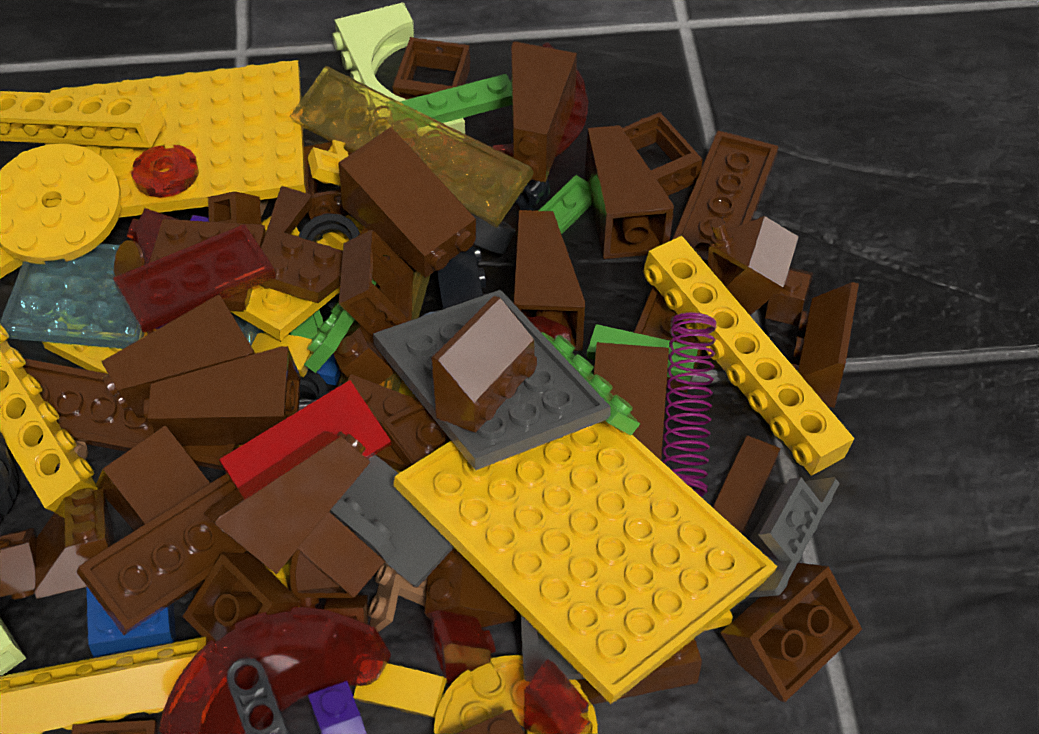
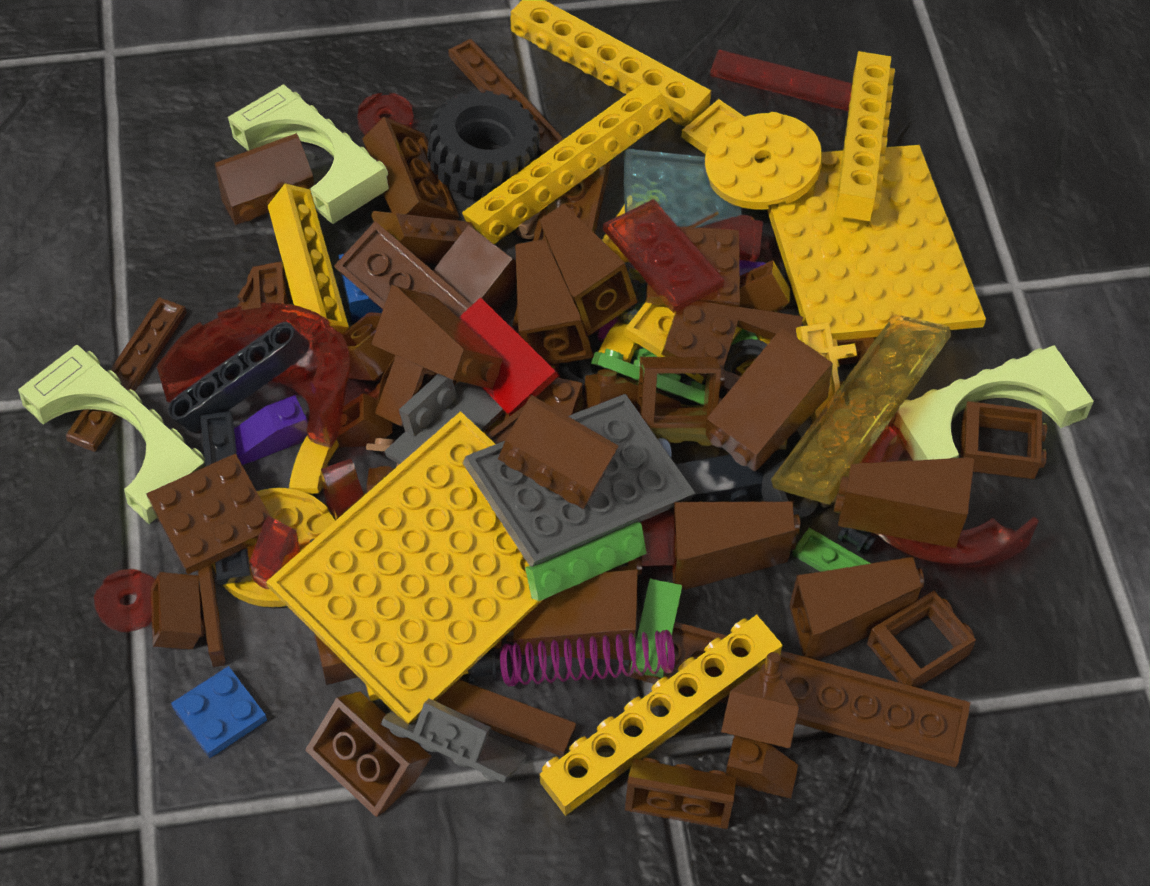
camera: 85 degrees right, 5 degrees up
(179, 178) = (806, 242): clear red tile -> none
(465, 99) = (944, 442): bright green plate -> none

